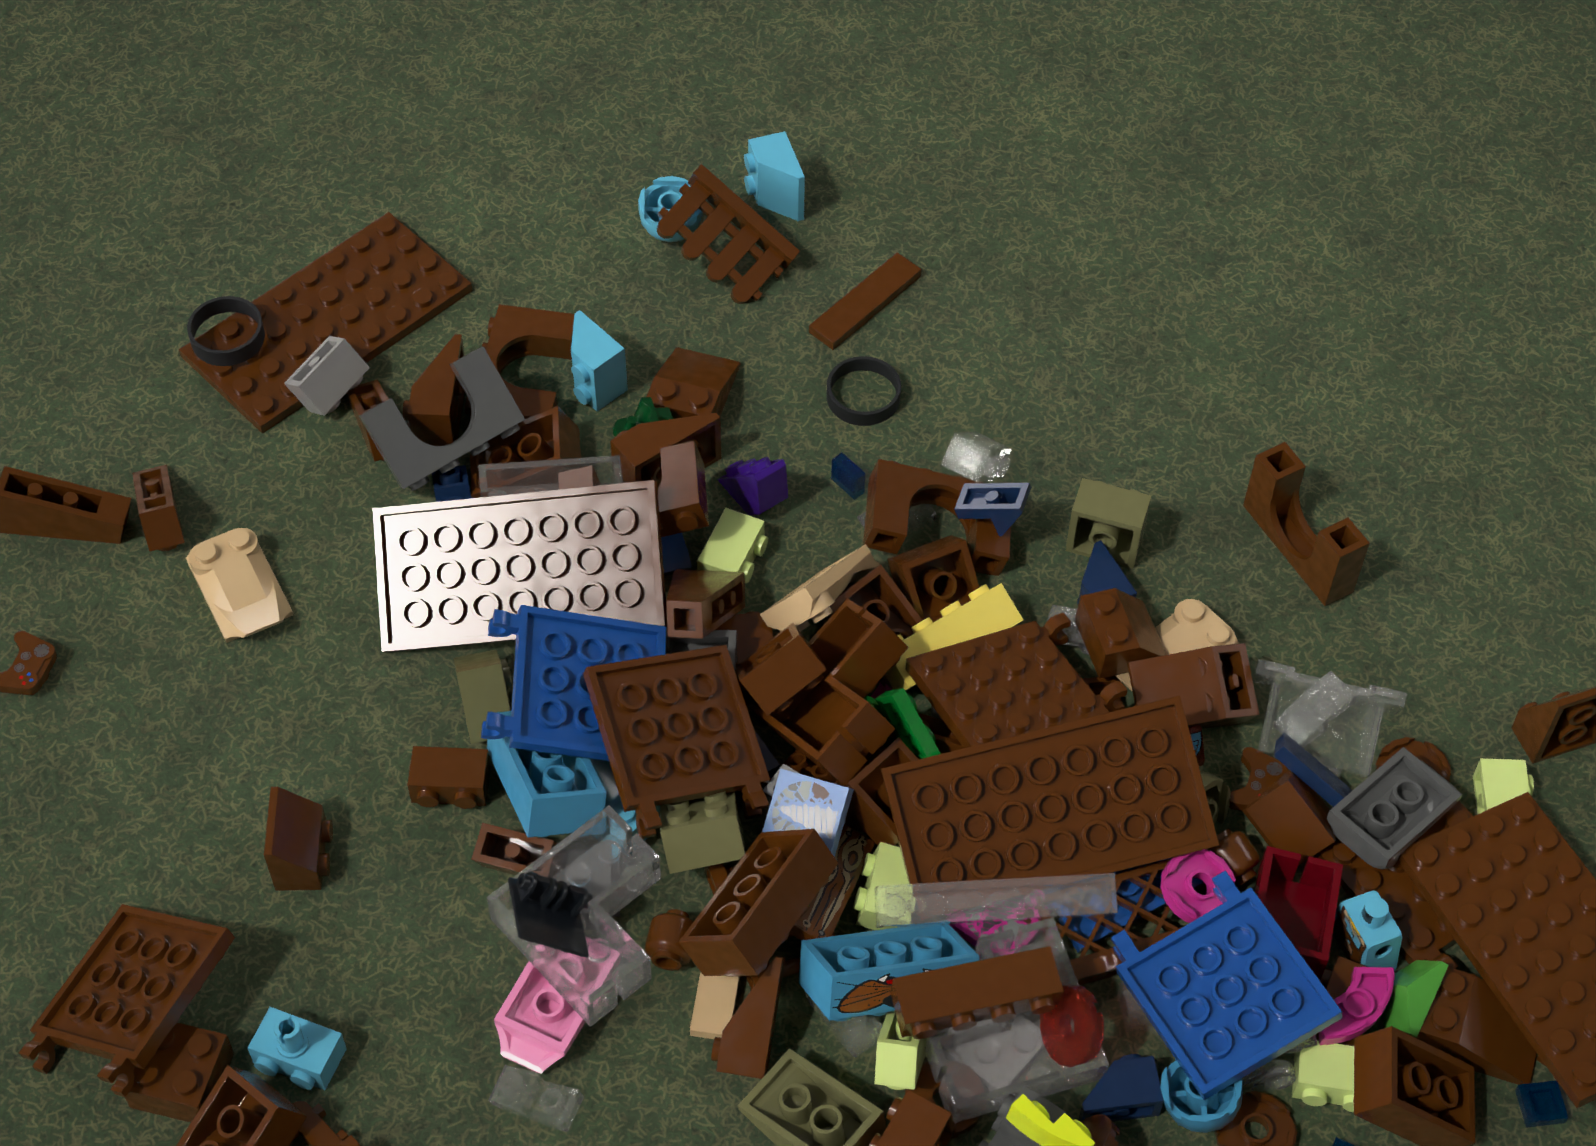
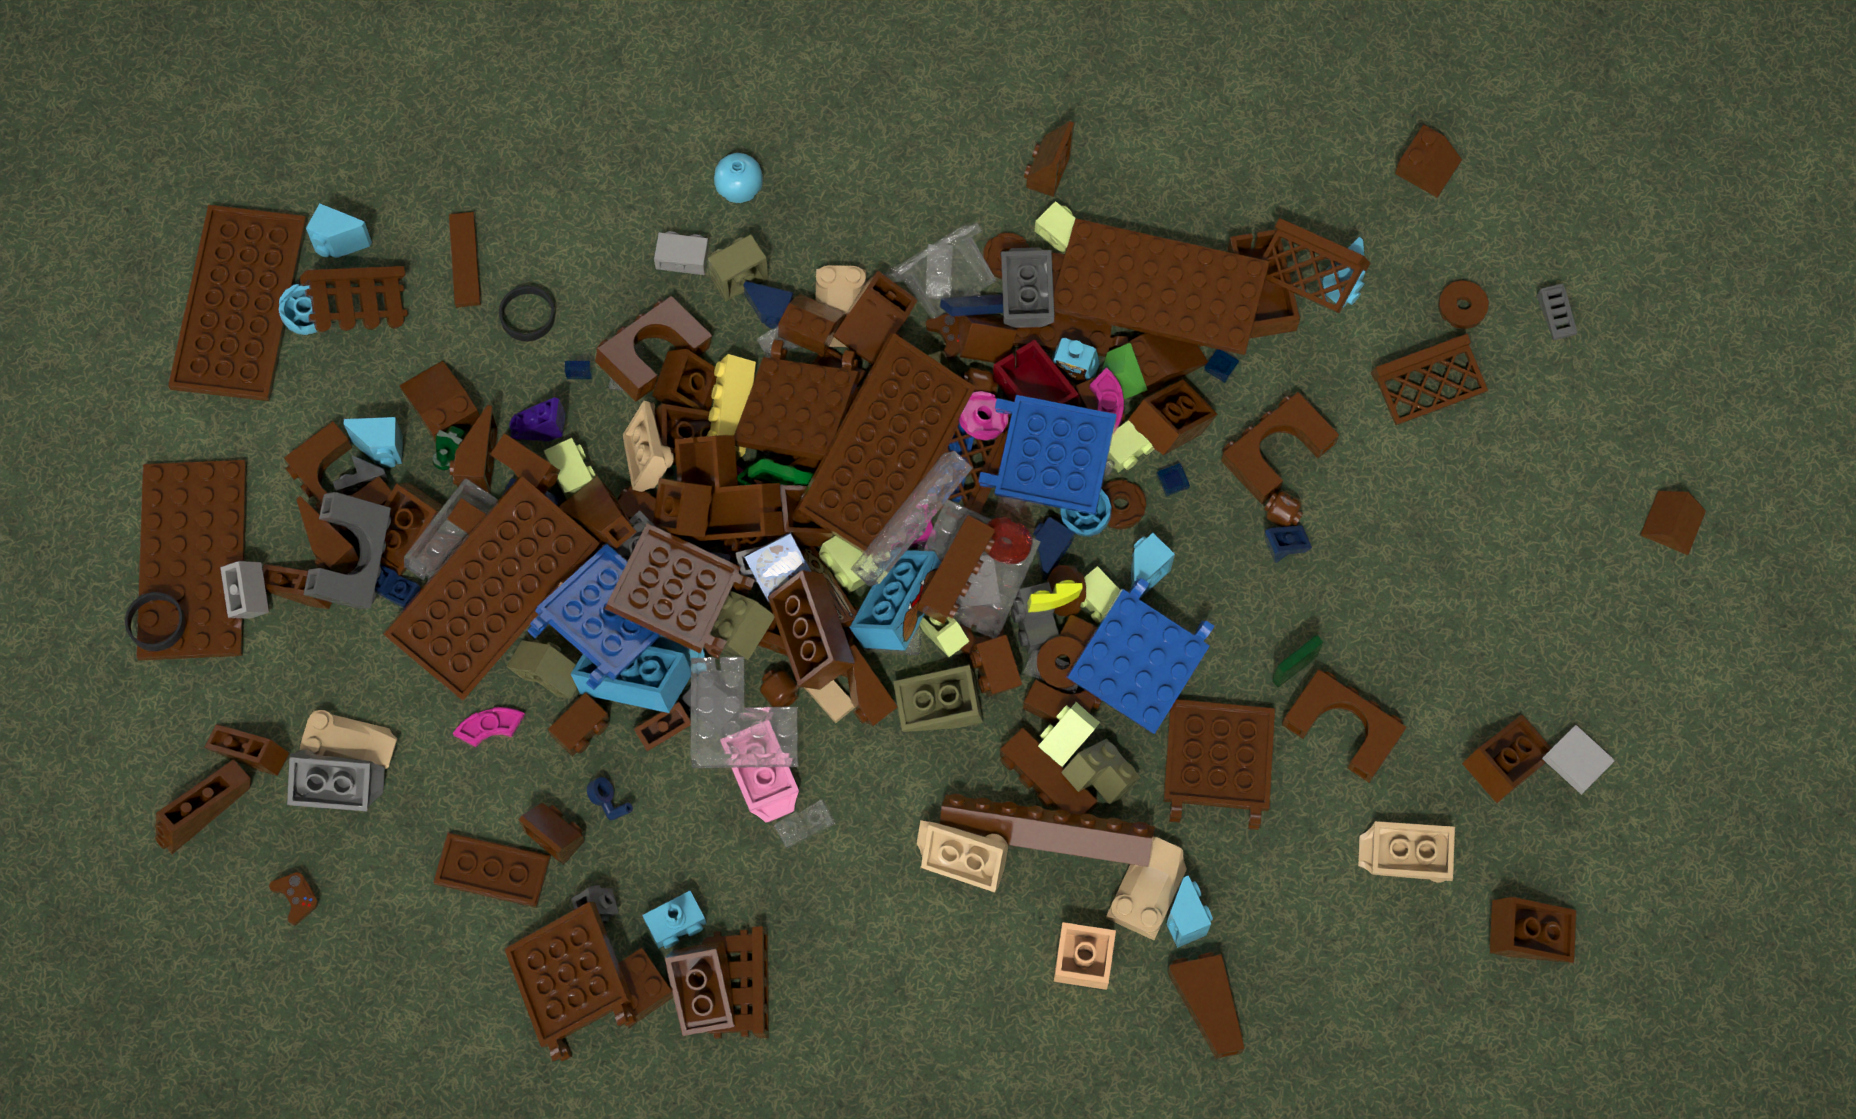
camera: 50 degrees left, 15 degrees up
(181, 600) = (333, 781): none -> dark grey slope
(209, 825) = (492, 870): none -> reddish brown tile
(250, 953) = (603, 899): none -> dark grey brick
(378, 695) = (488, 723): none -> dark pink tile
(395, 865) = (601, 793): none -> dark blue plate
(549, 380) = (366, 472): none -> flat silver slope
(549, 912) = (727, 736): black hinge -> none
(594, 175) = (232, 307): none -> reddish brown plate
(977, 457) = (635, 295): clear brick -> none
(993, 501) = (680, 313): dark blue slope -> none
(1065, 461) = (681, 253): none -> light grey brick
(1209, 454) = (738, 177): none -> medium azure cylinder
(1325, 561) = (806, 177): reddish brown arch -> none

